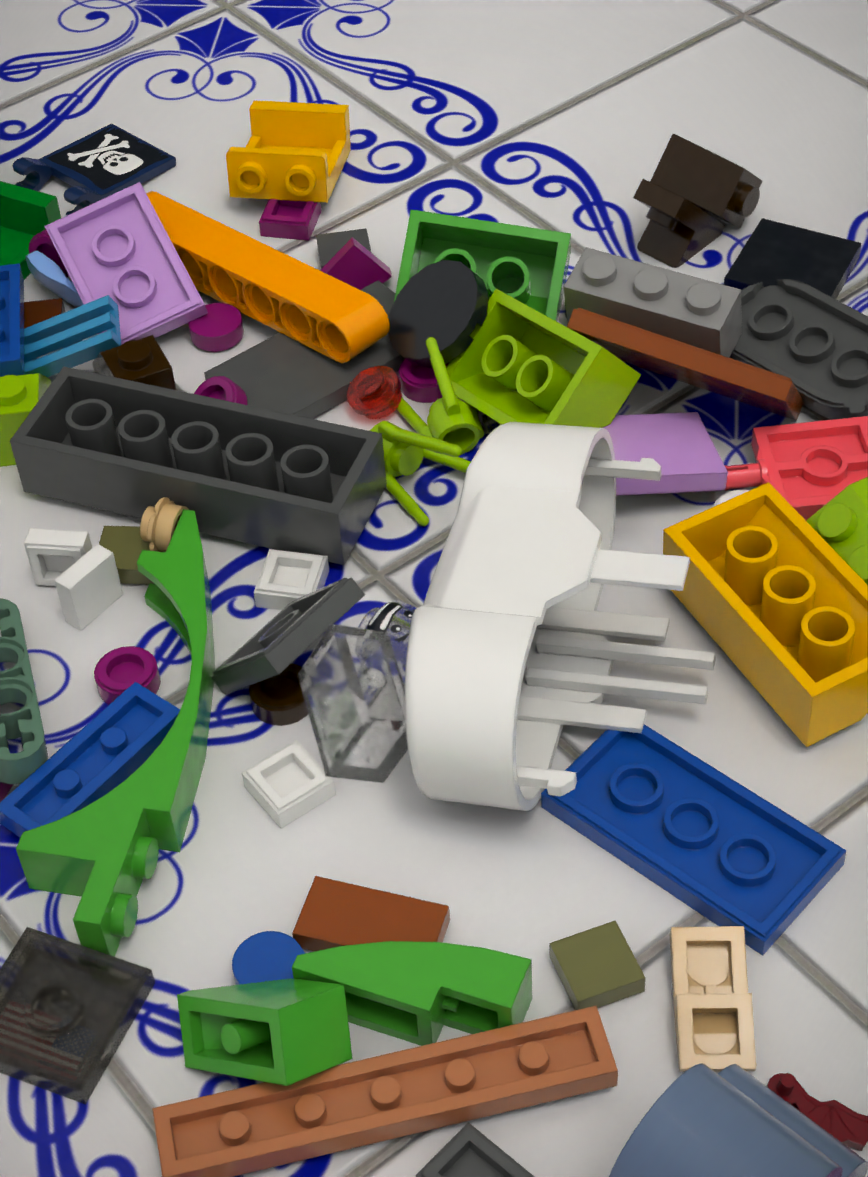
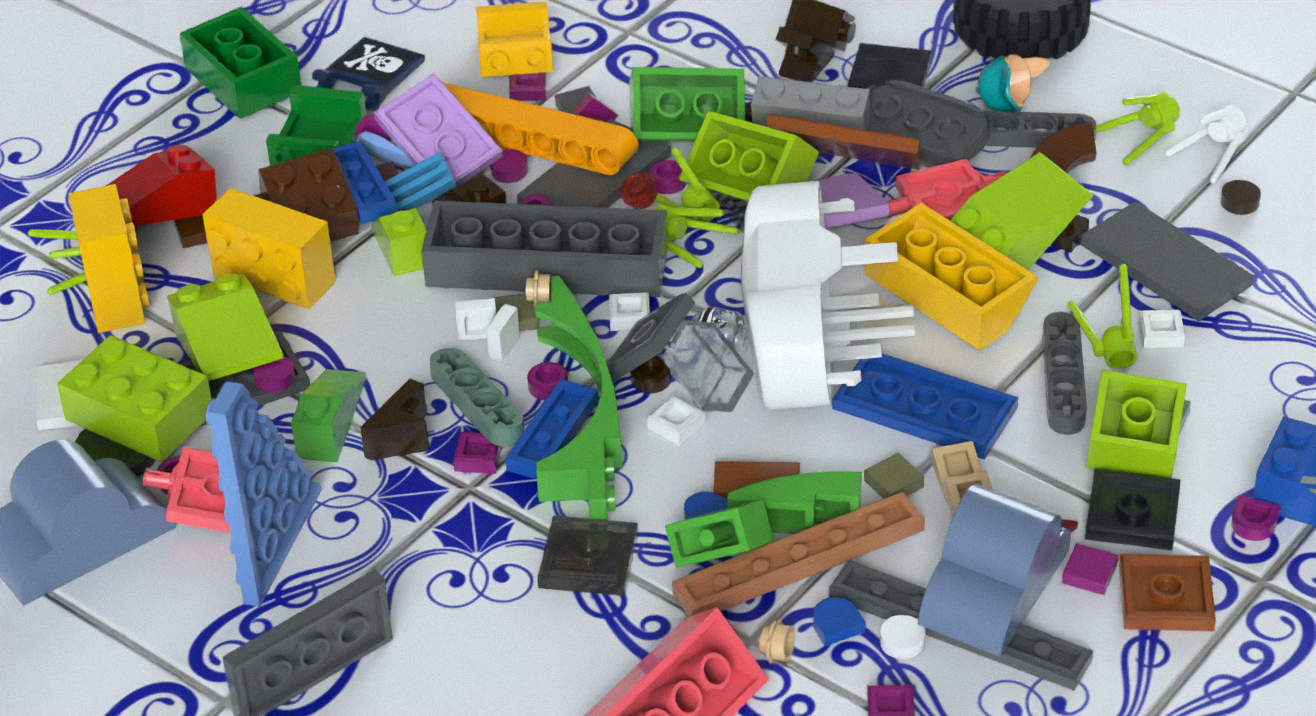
camera: 15 degrees left, 5 degrees down
(439, 303) = (670, 125): black tile -> none

